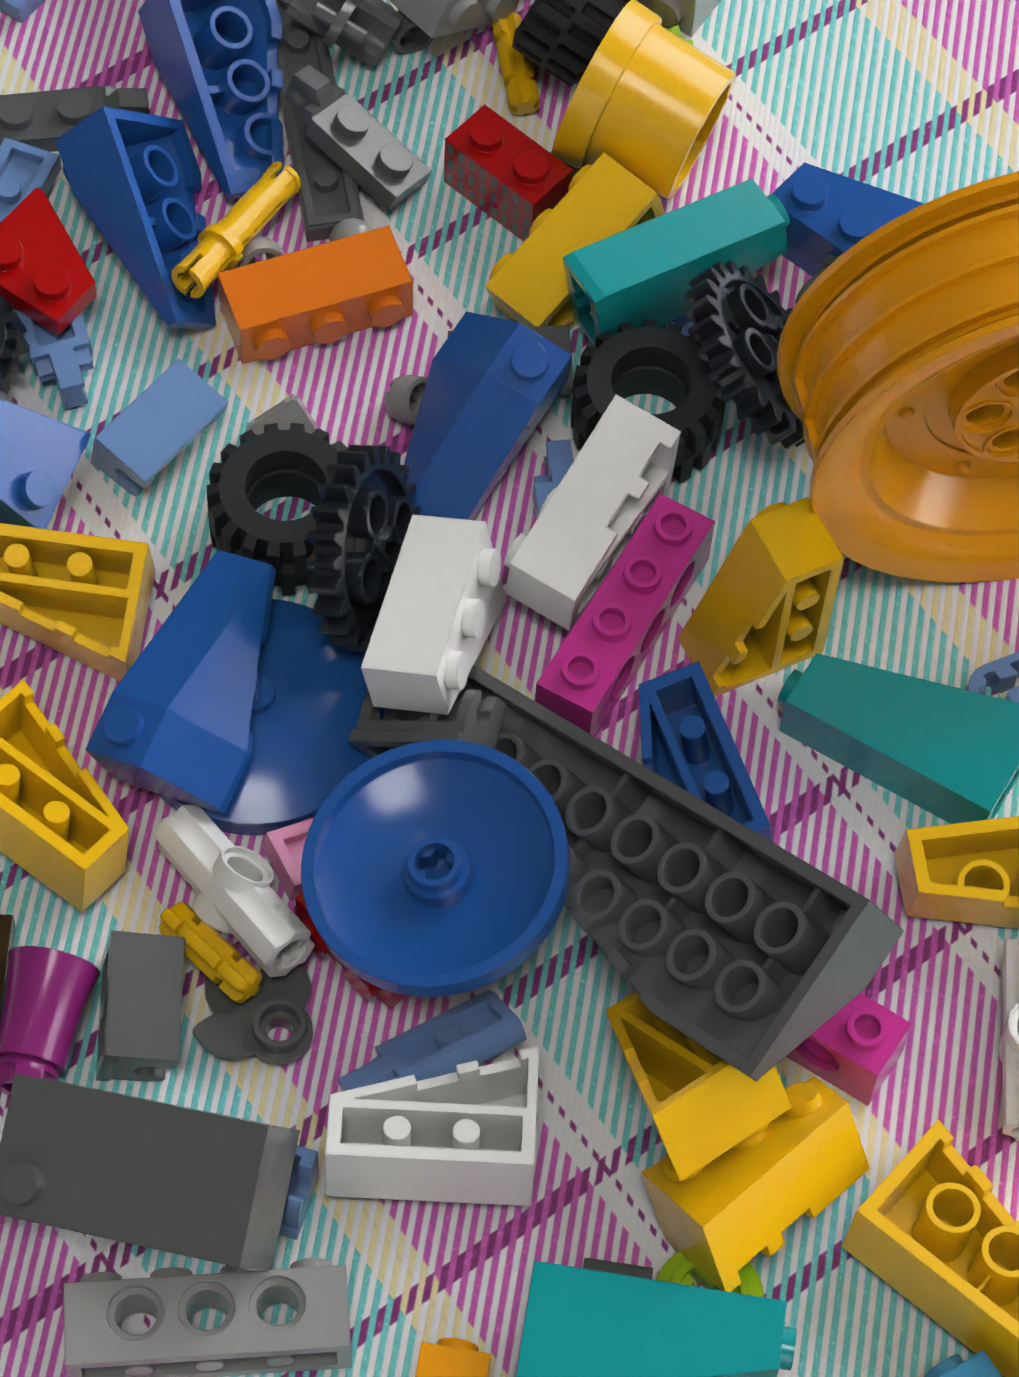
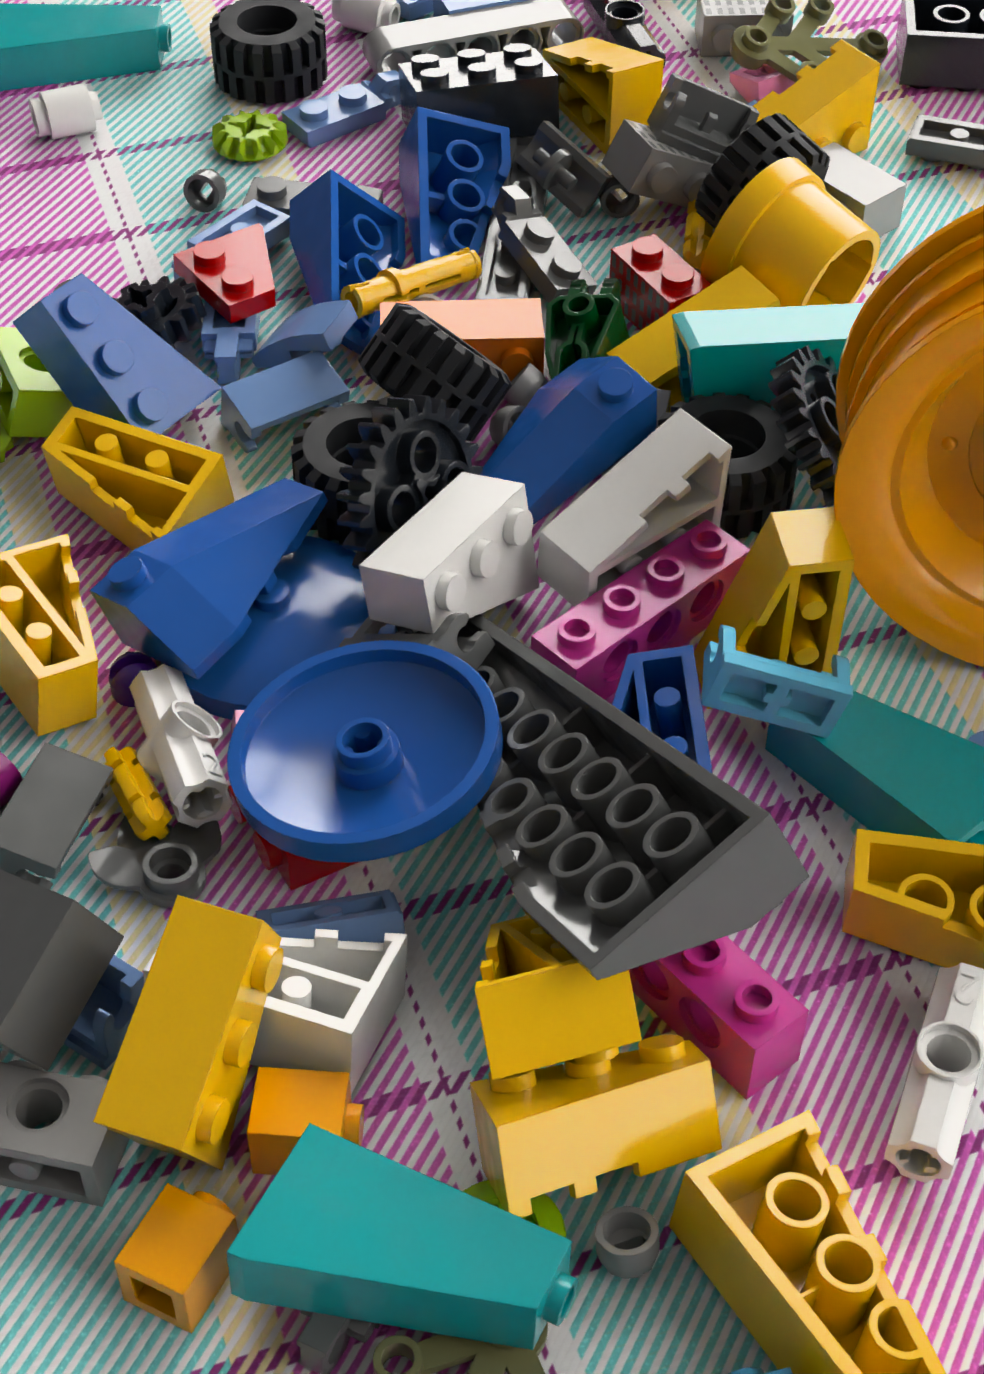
camera: 20 degrees right, 15 degrees down
(145, 825) = (124, 671): none -> dark purple hinge
(149, 334) = (307, 330): none -> medium blue slope
(321, 369) = (426, 359): none -> black tyre
(404, 340) = (525, 385): none -> light grey hinge
(406, 1207) = (193, 1033): none -> yellow wedge
(449, 259) = (583, 324): none -> dark green hinge
(501, 1244) = (291, 1100): none -> light orange brick
(790, 690) = (773, 689): none -> medium azure hinge
(806, 1265) = (627, 1241): none -> light grey hinge

